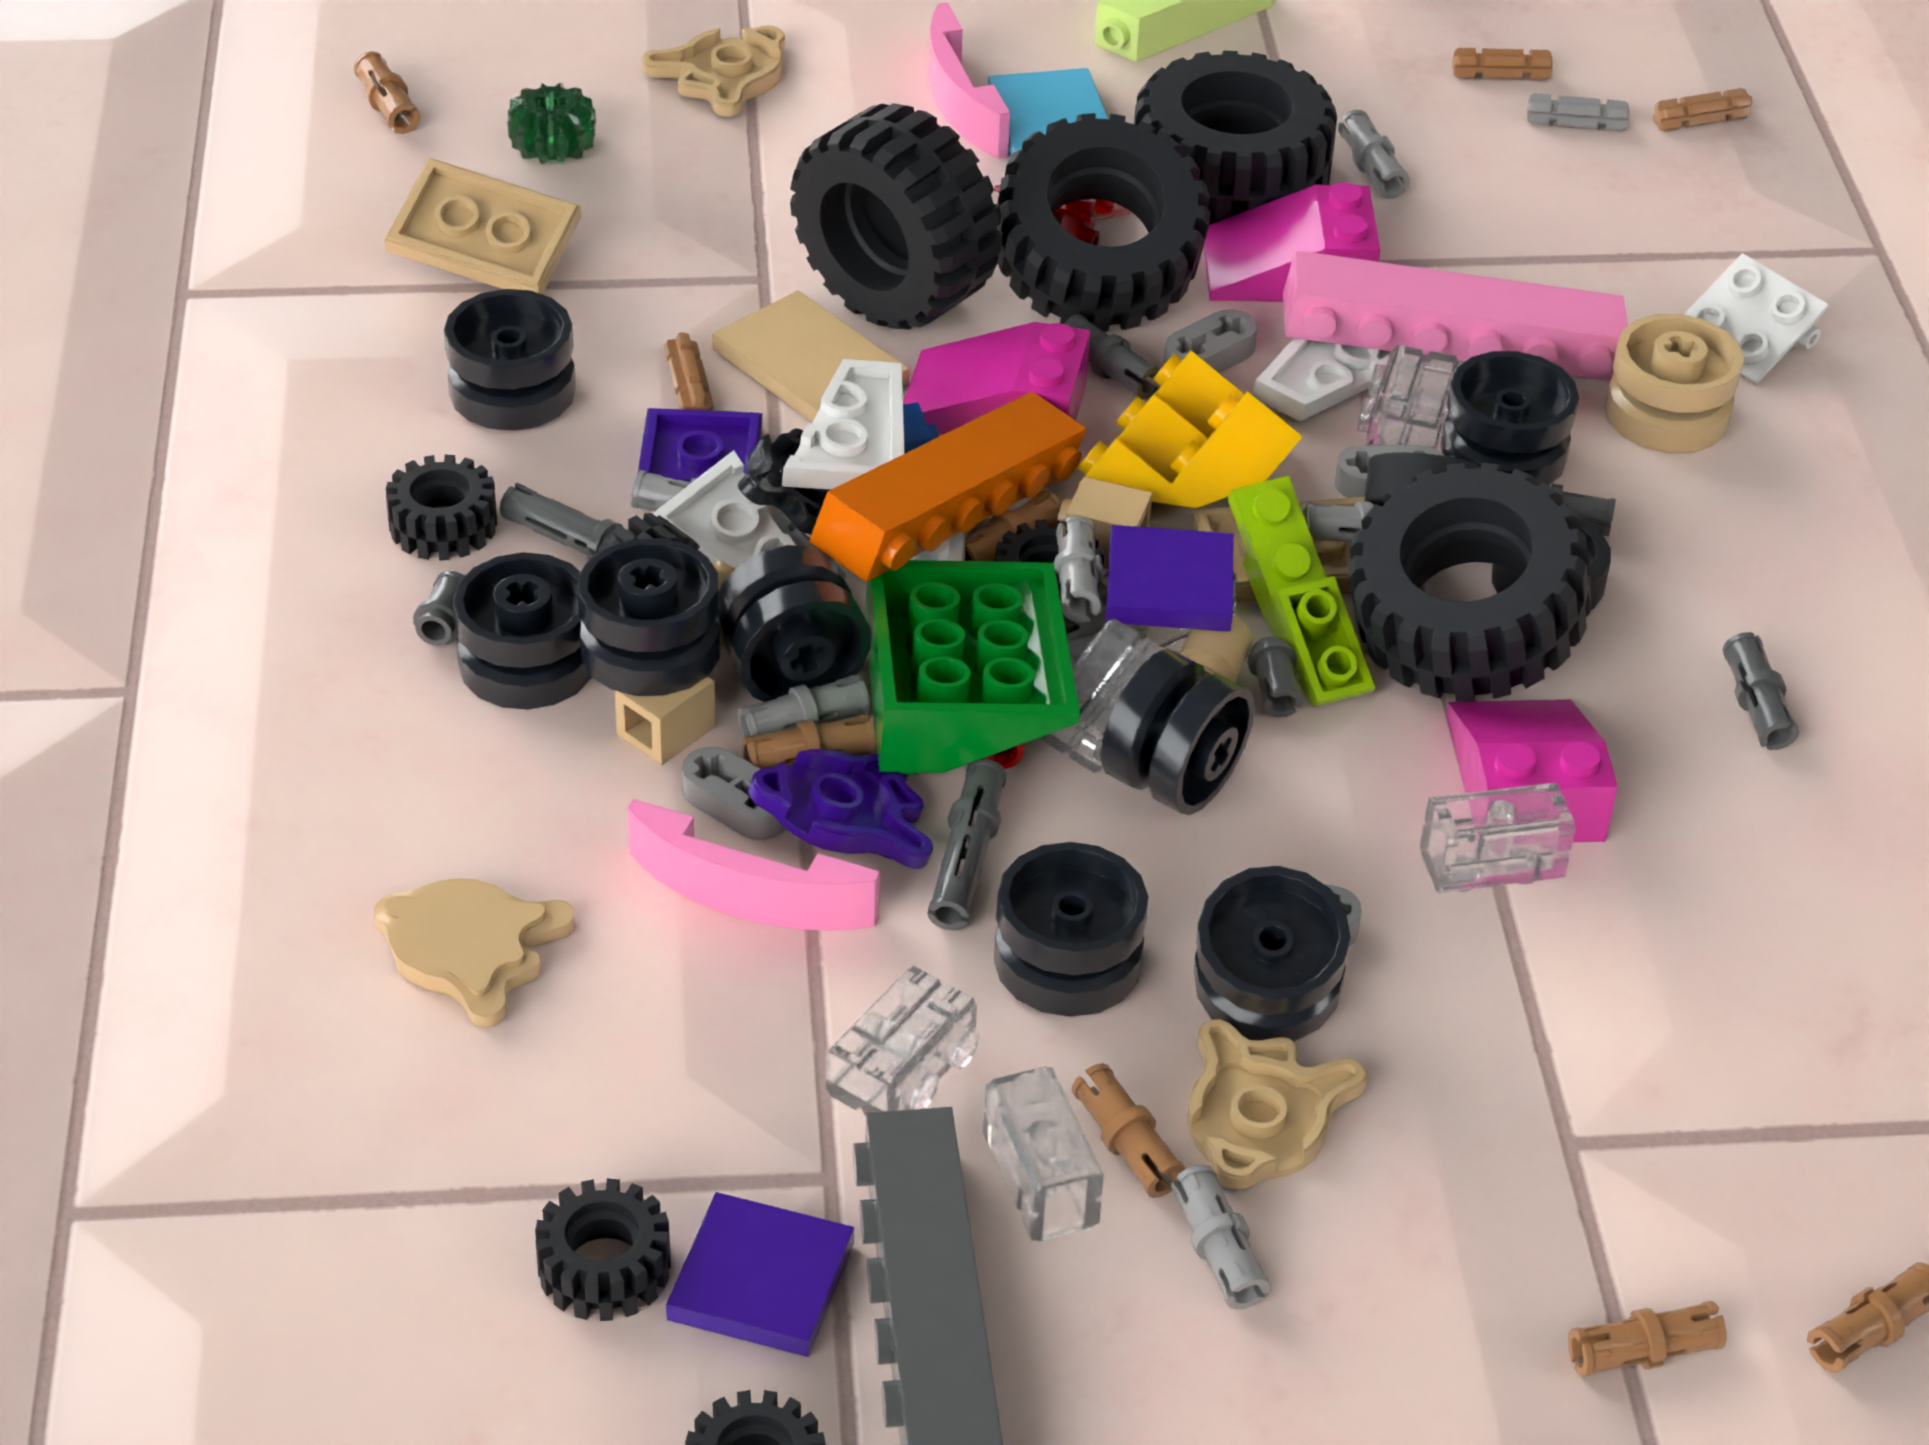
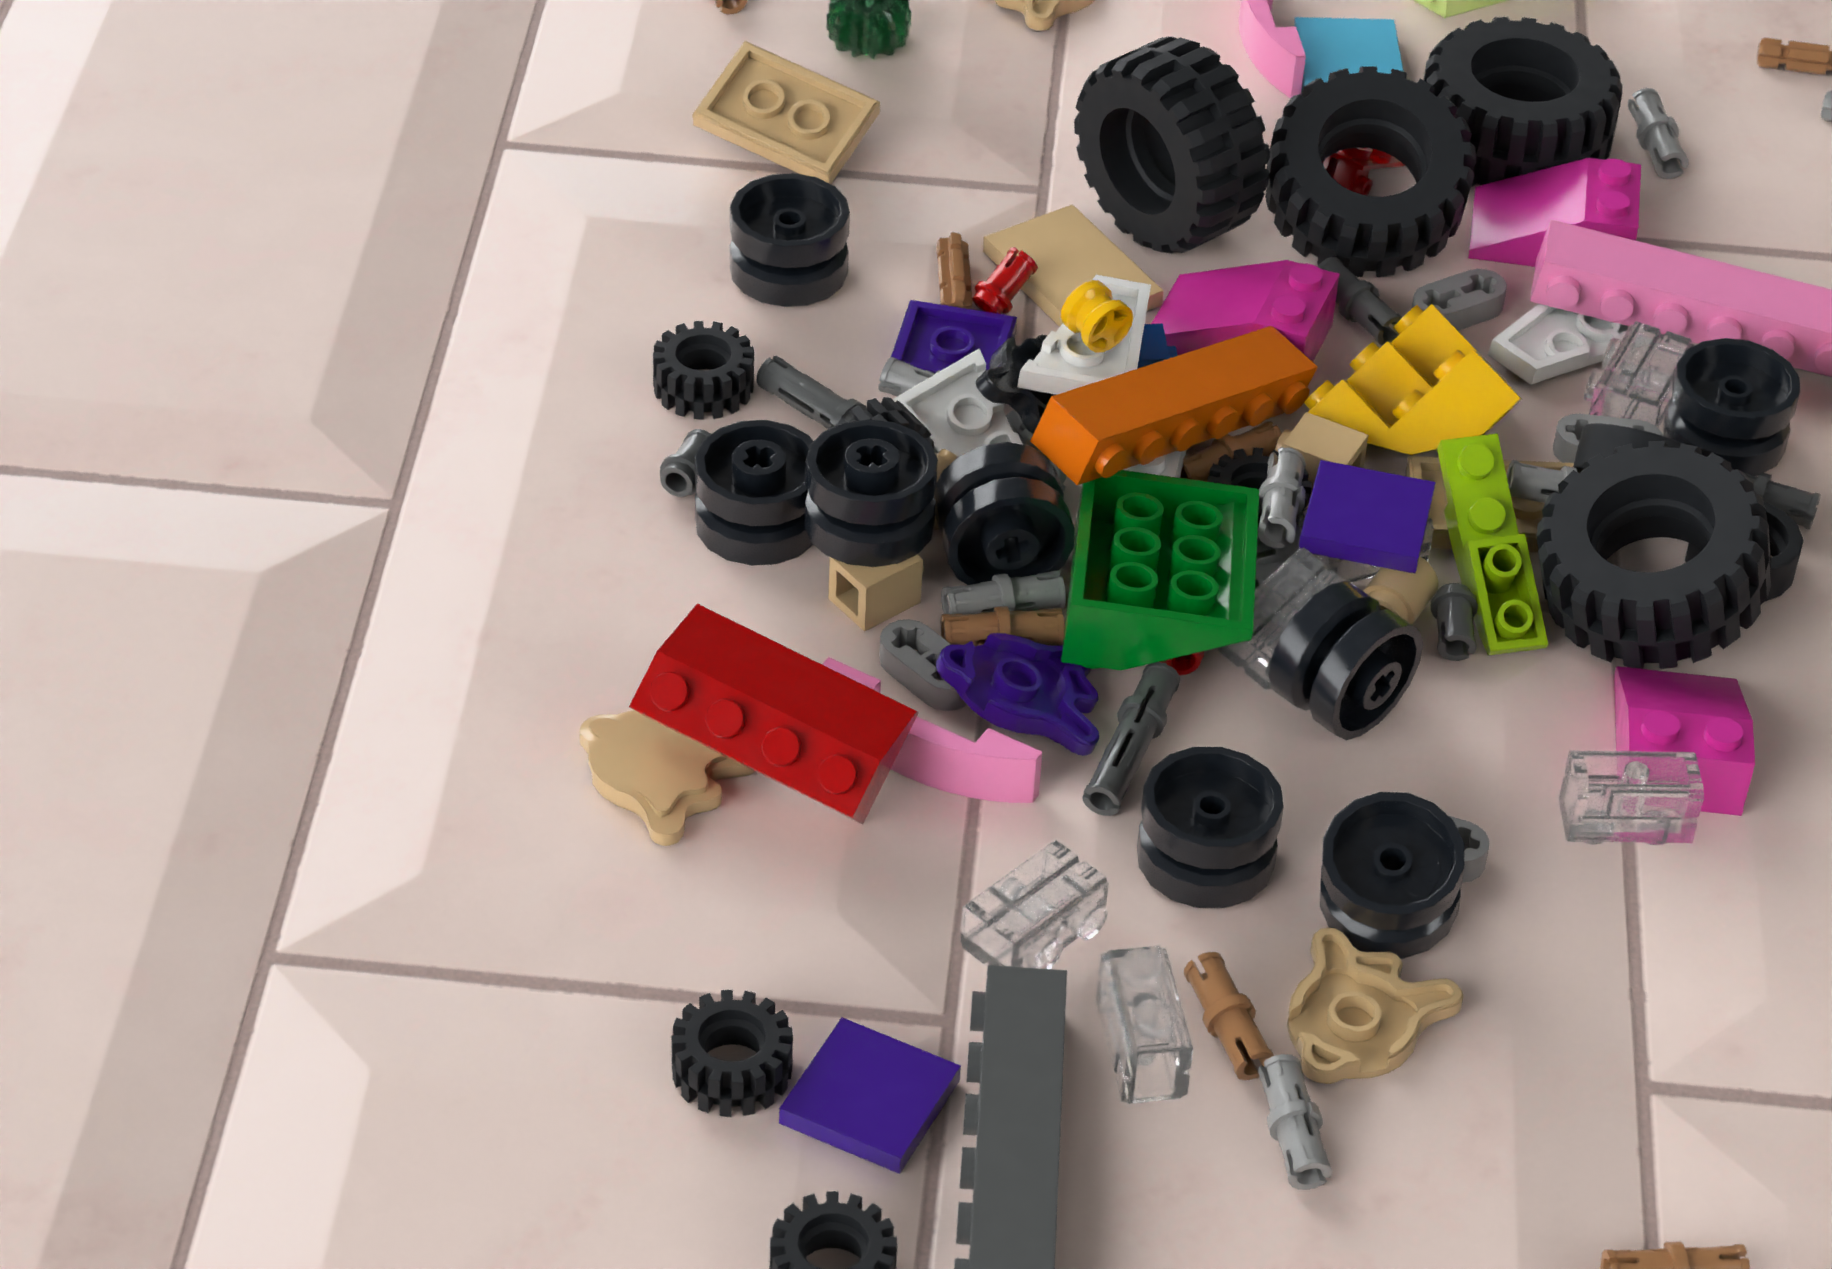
camera: 10 degrees right, 0 degrees up
(586, 866) = (774, 711): none -> red slope
(743, 379) = (1004, 283): none -> red pin
(854, 401) = (1096, 316): none -> yellow wheel

